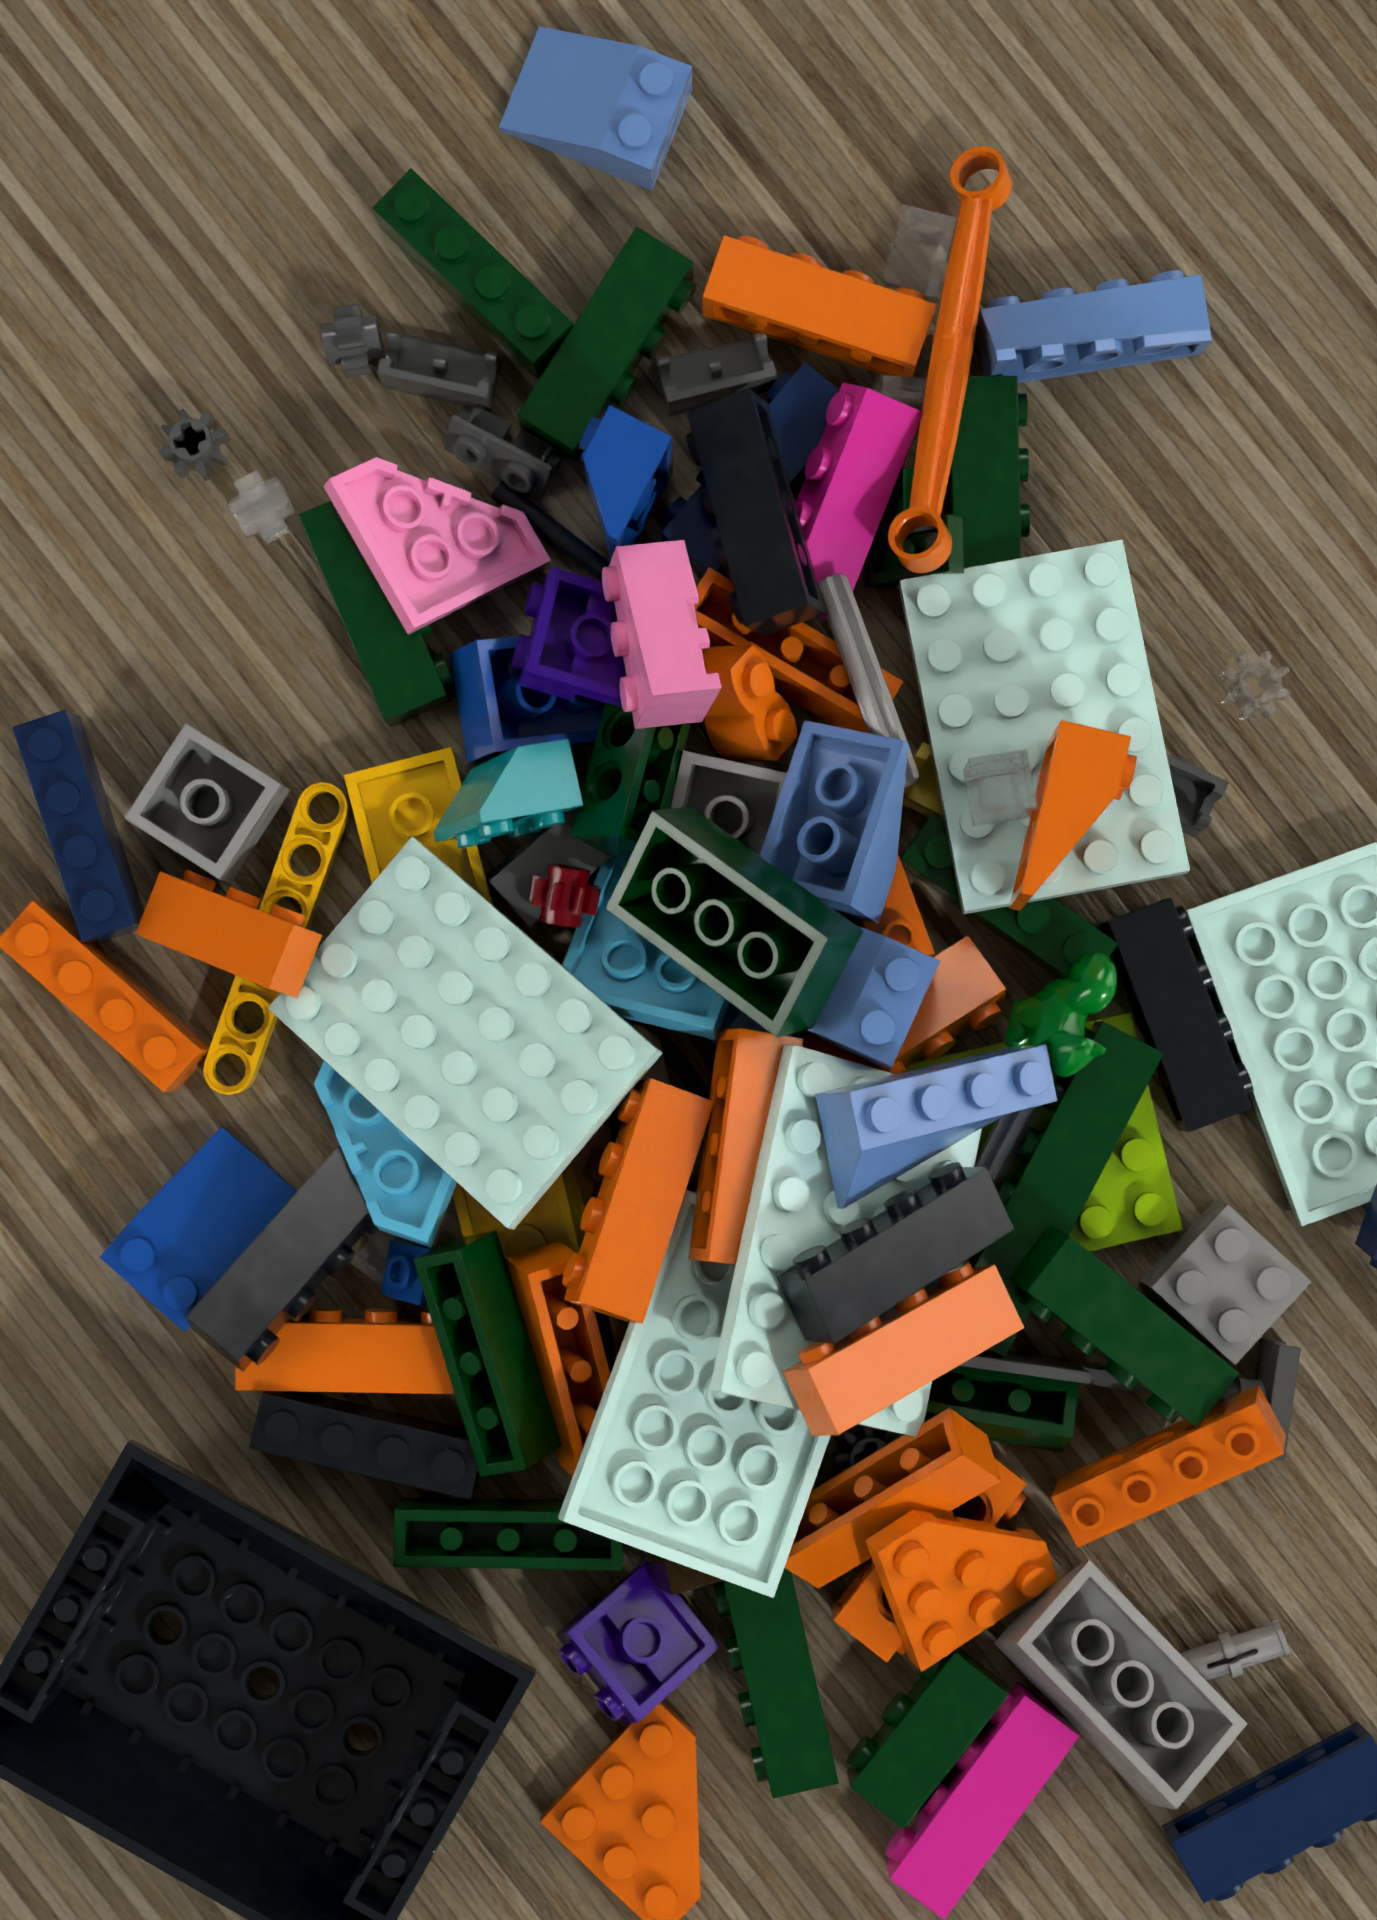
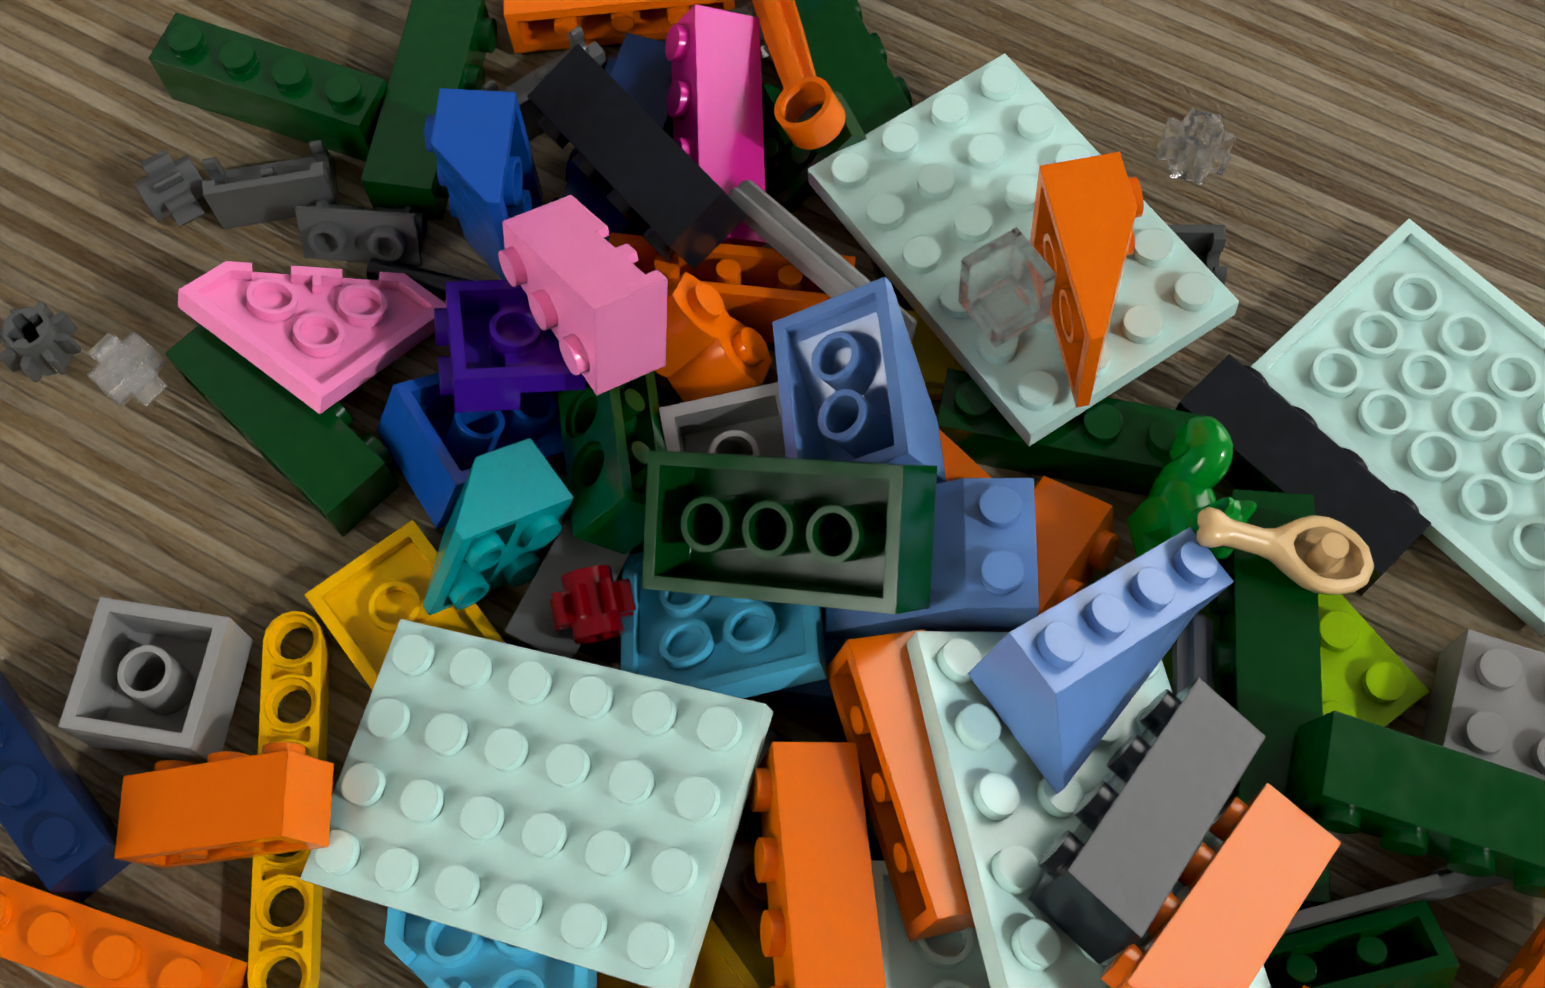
camera: 20 degrees left, 20 degrees down
(1128, 1104) = (1310, 550): none -> tan piece

